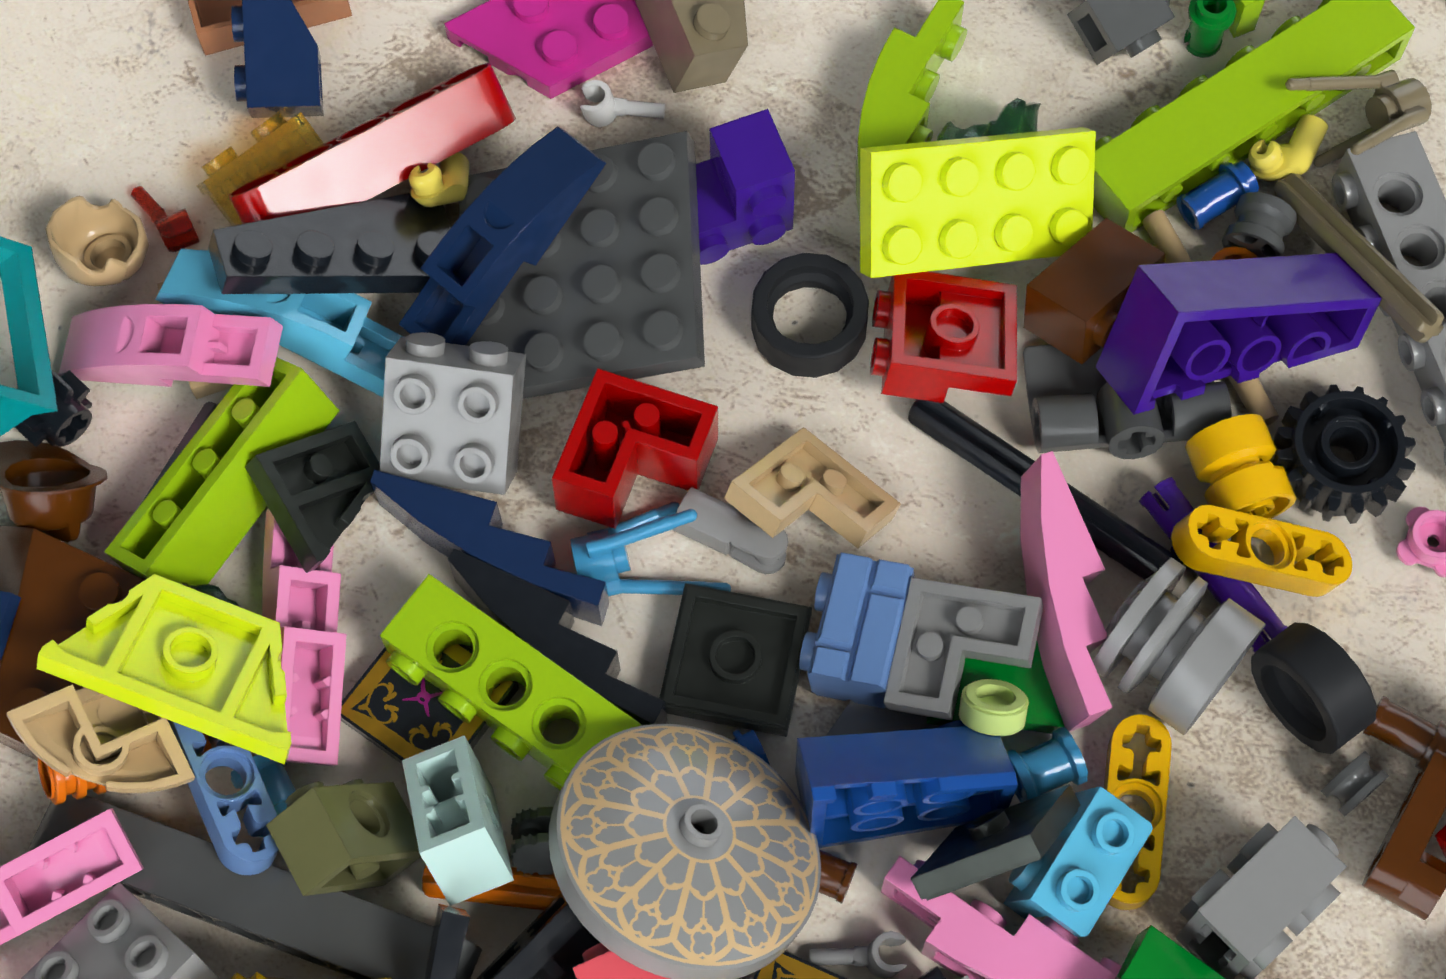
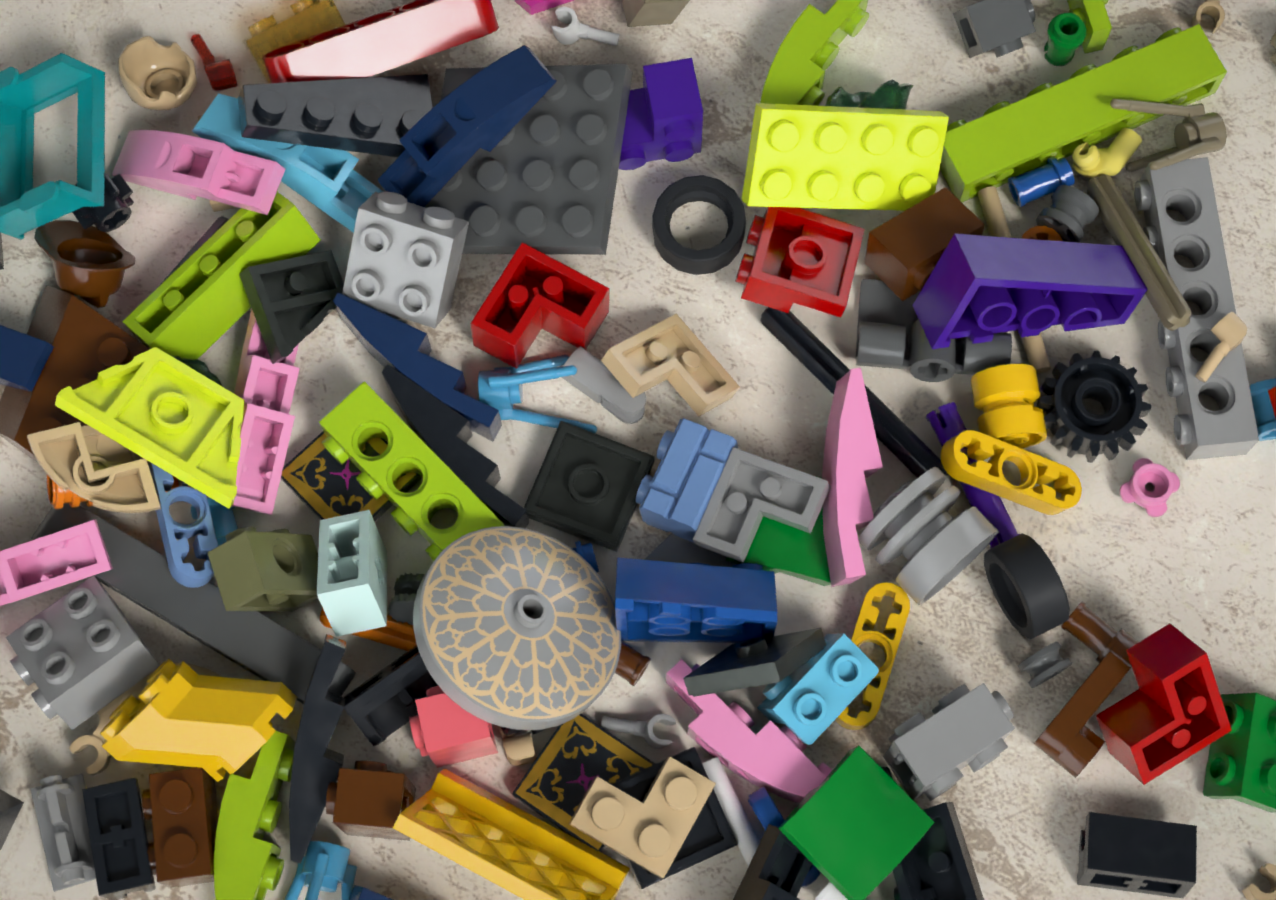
camera: 10 degrees right, 5 degrees up
(441, 184) = (433, 73): light yellow arm -> none
(993, 707) = (775, 558): yellowish green tile -> none
(1048, 765) = (809, 609): dark azure bush -> none

